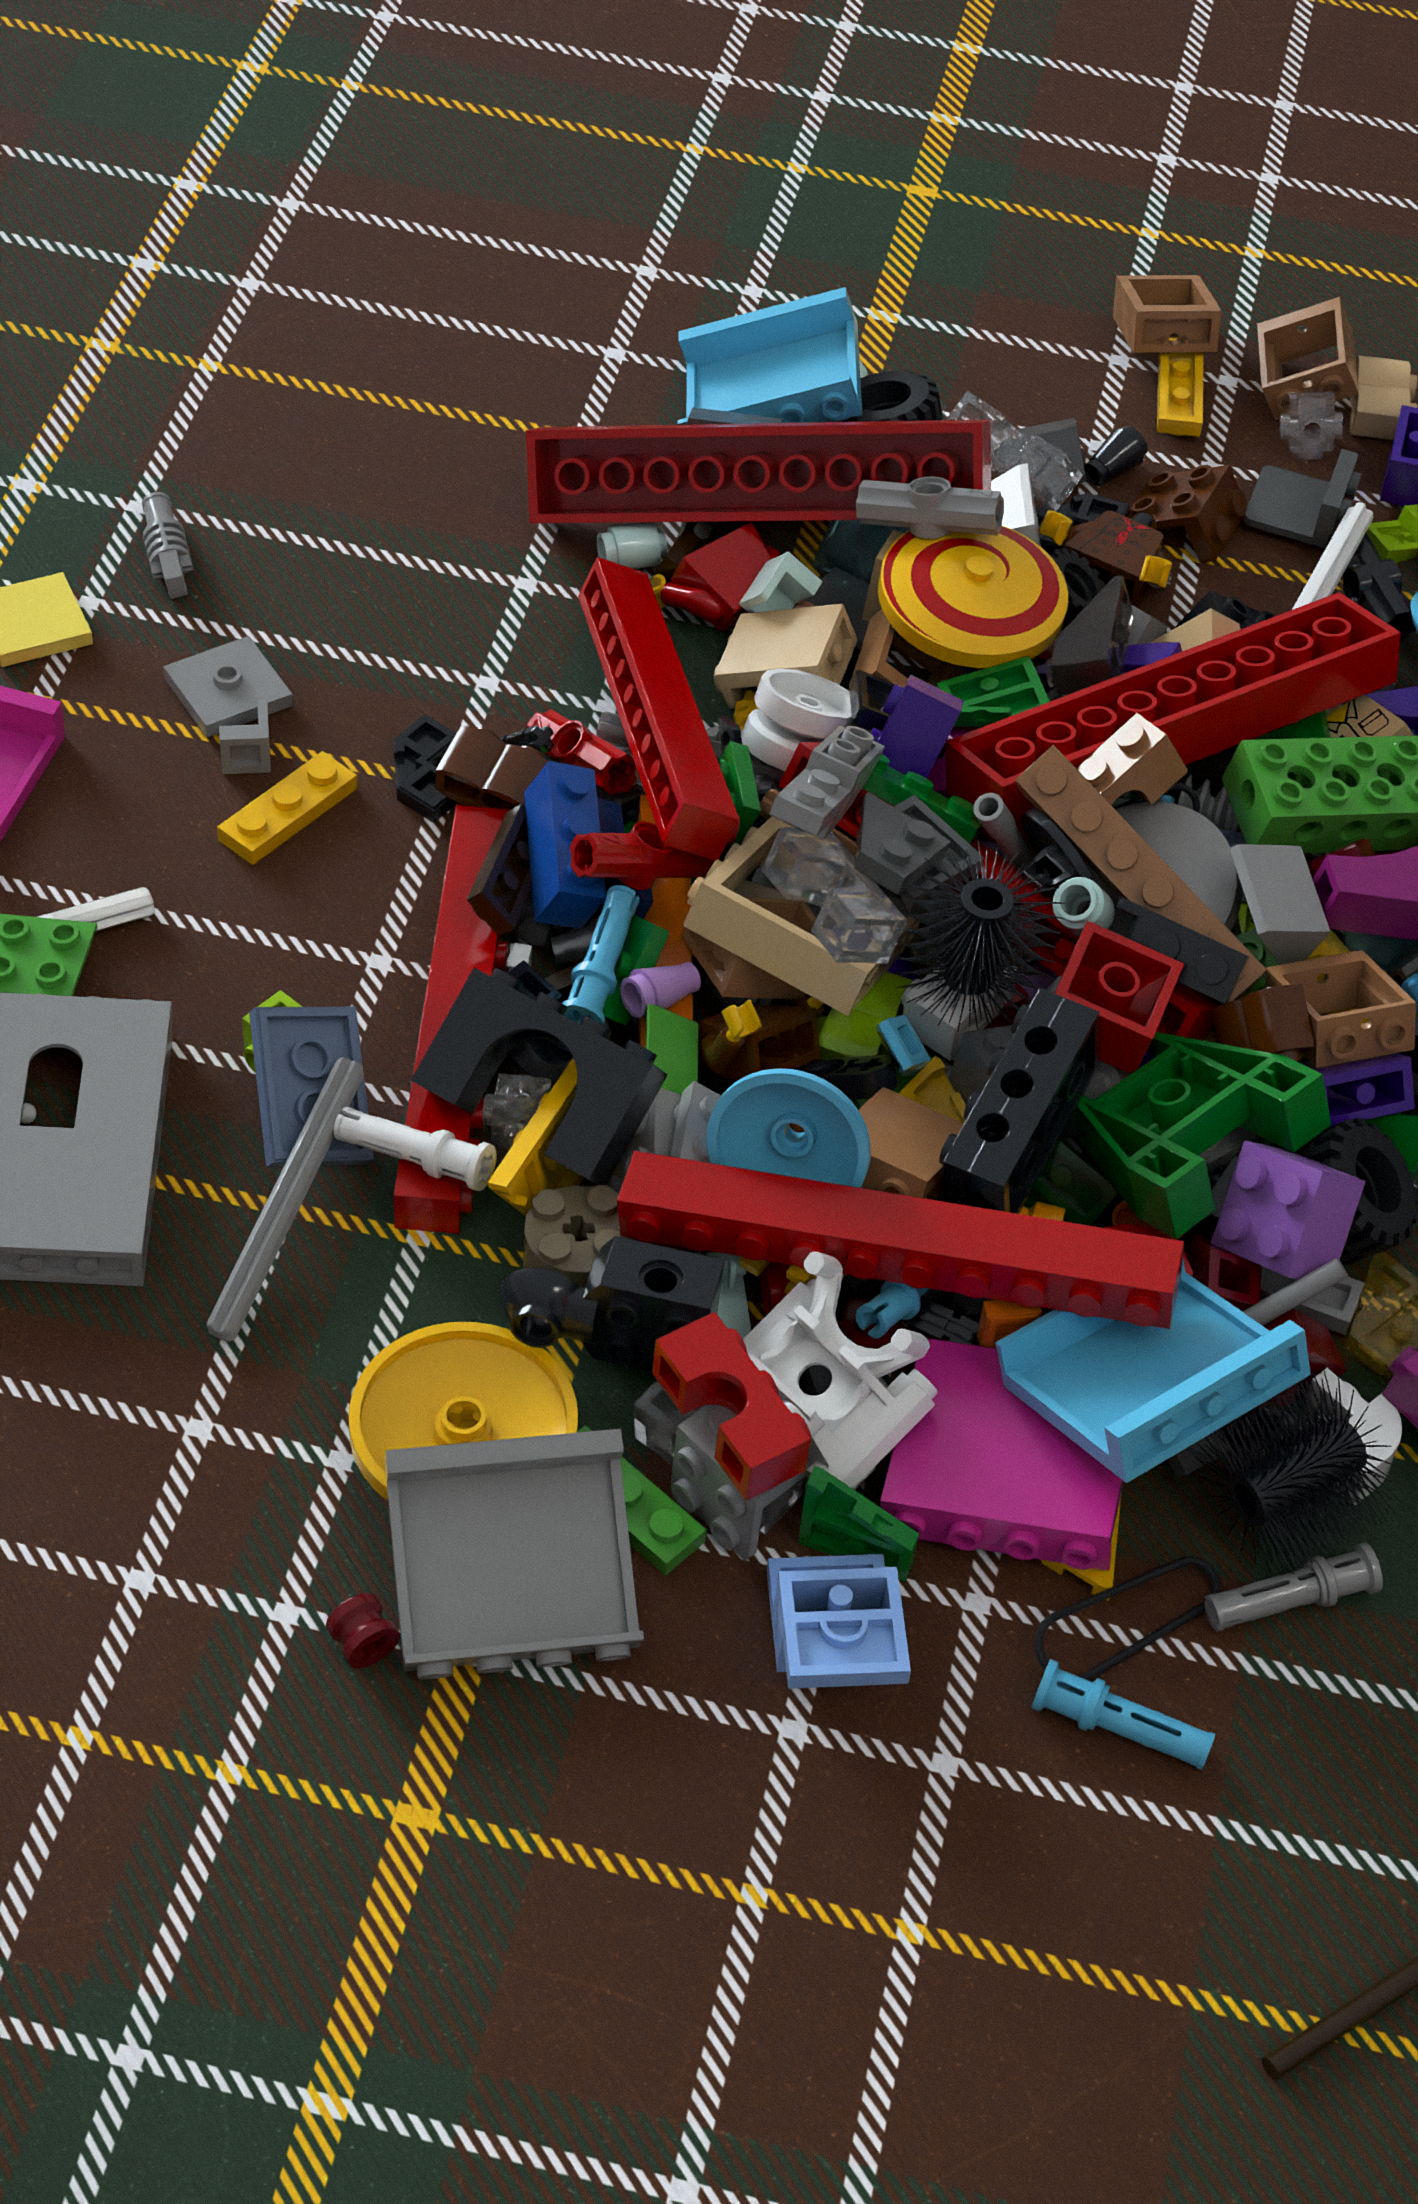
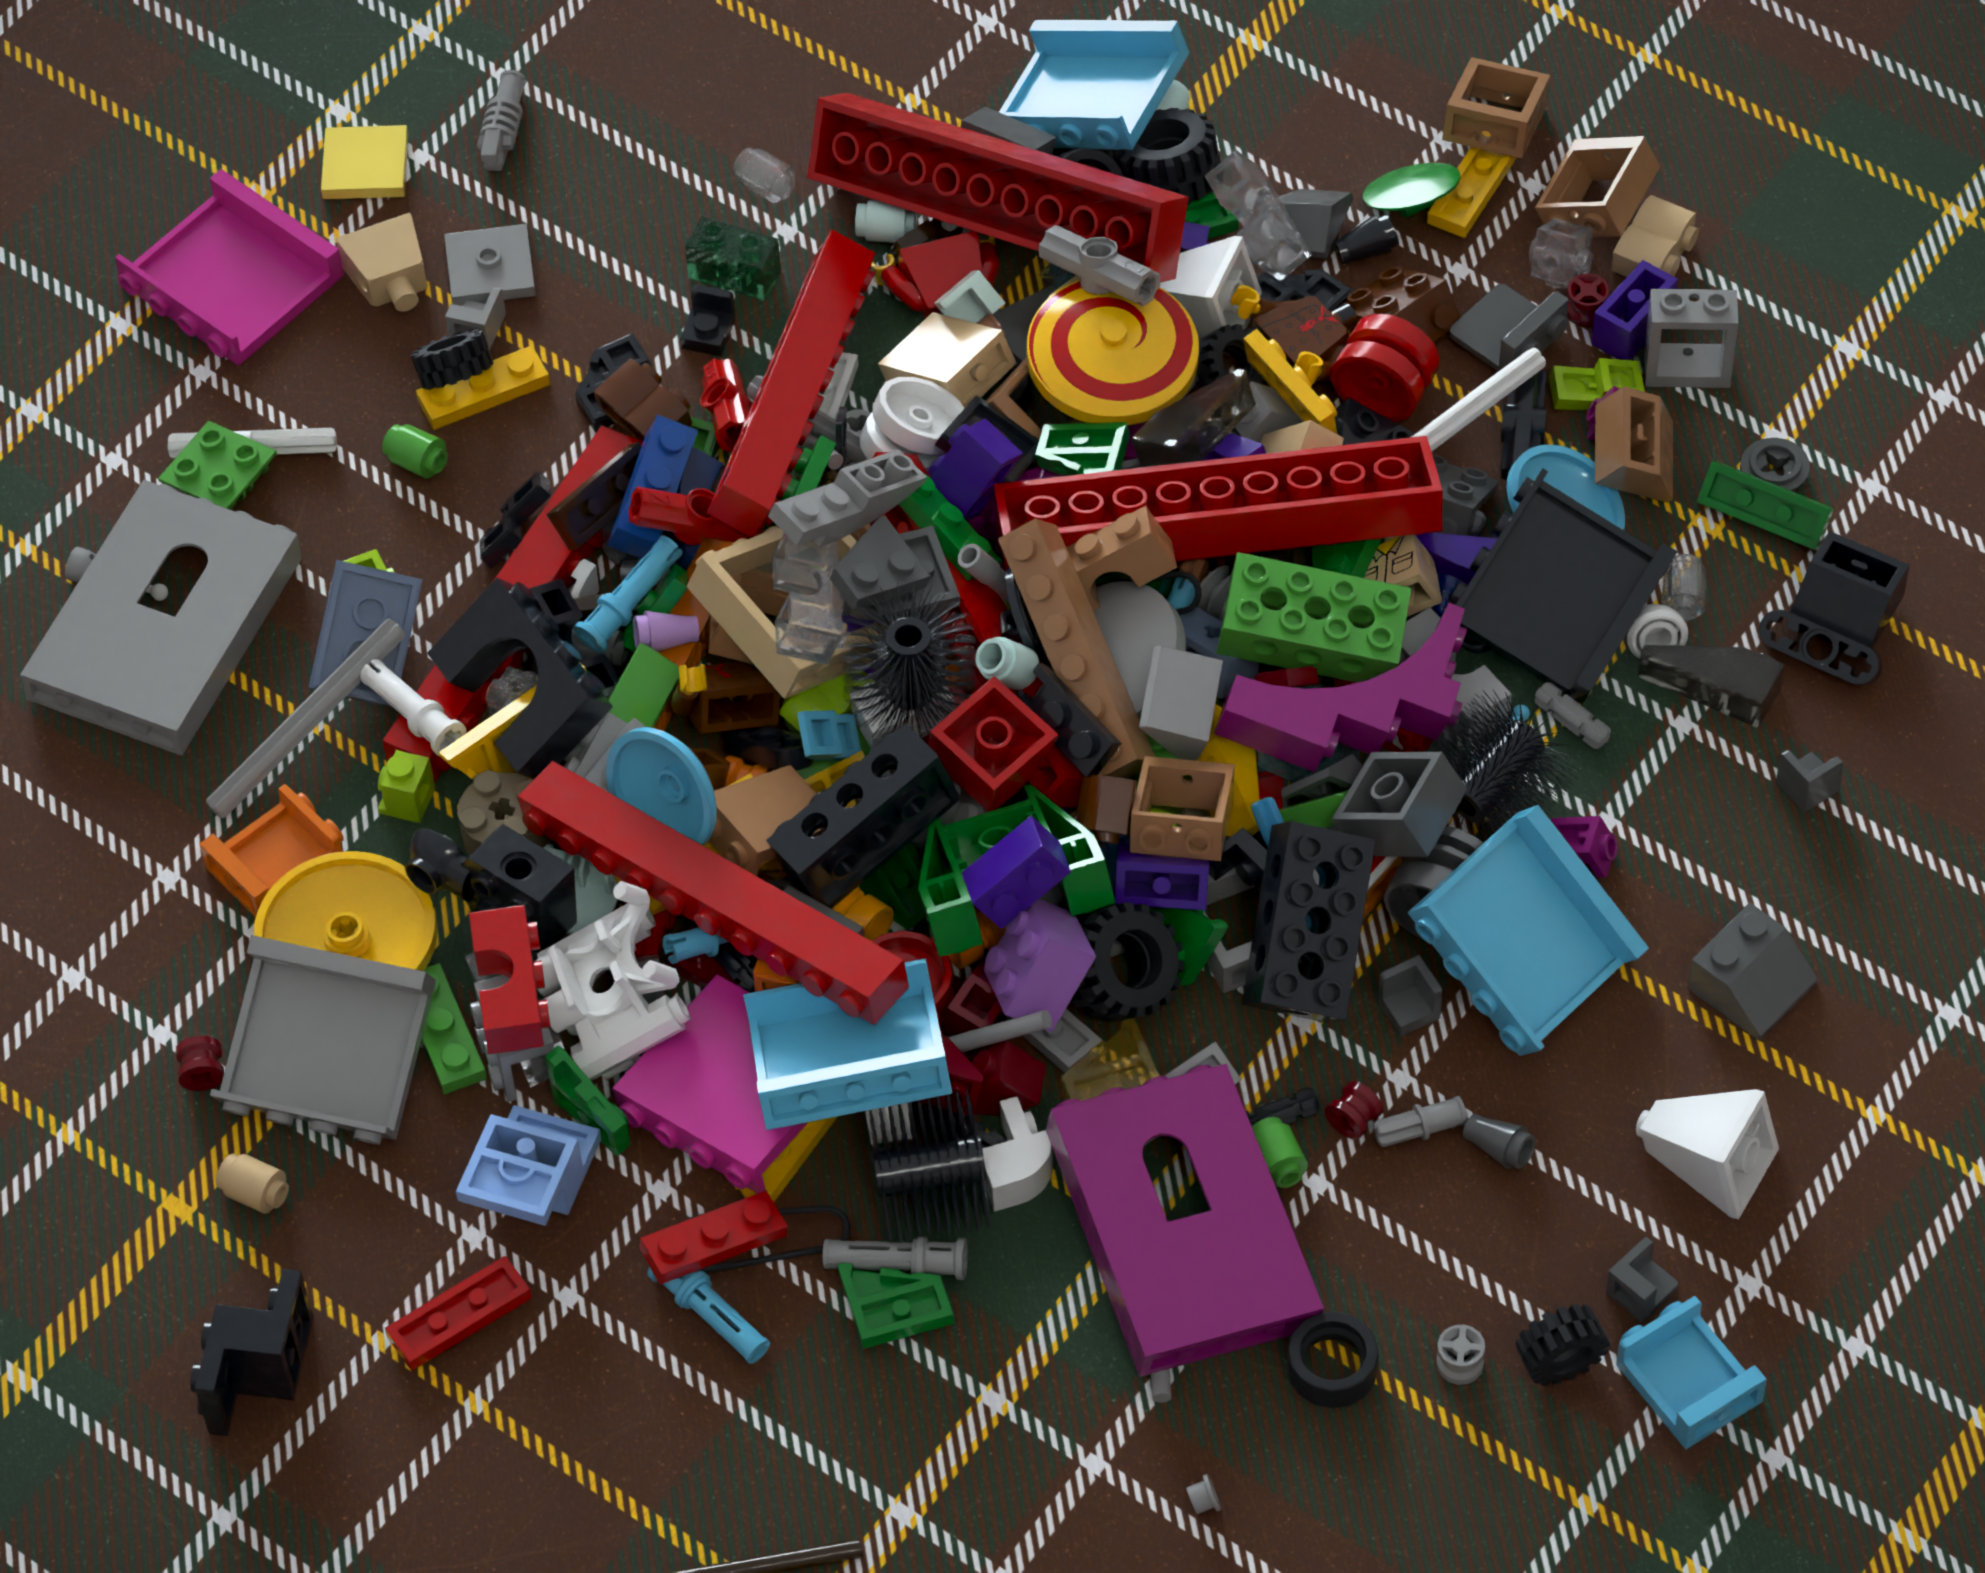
camera: 30 degrees right, 5 degrees up
(115, 707) = (385, 262): none -> tan torso
(249, 781) = (452, 359): none -> black tyre
(251, 886) = (415, 450): none -> bright green brick
(317, 1359) = (270, 848): none -> orange panel
(402, 944) = (519, 506): none -> black tile
(439, 1241) = (406, 786): none -> lime brick
(480, 531) = (764, 174): none -> clear brick
(495, 615) = (733, 258): none -> clear green brick
(500, 681) = (709, 320): none -> black bracket
(504, 1753) = (252, 1182): none -> tan brick
(533, 736) = (689, 384): black axle -> none
(631, 1963) = (252, 1352): none -> black bracket
(838, 1828) = (458, 1313): none -> red plate
(1093, 1634) = (713, 1237): none -> red plate
(1129, 400) = (1411, 188): none -> shield
(1151, 586) = (1289, 383): none -> yellow plate
(1223, 549) = (1385, 366): none -> red wheel
(1234, 1115) = (1016, 872): none -> dark purple brick
(1321, 1644) = (894, 1303): none -> green wing
(1367, 456) = (1585, 296): none -> dark red wheel

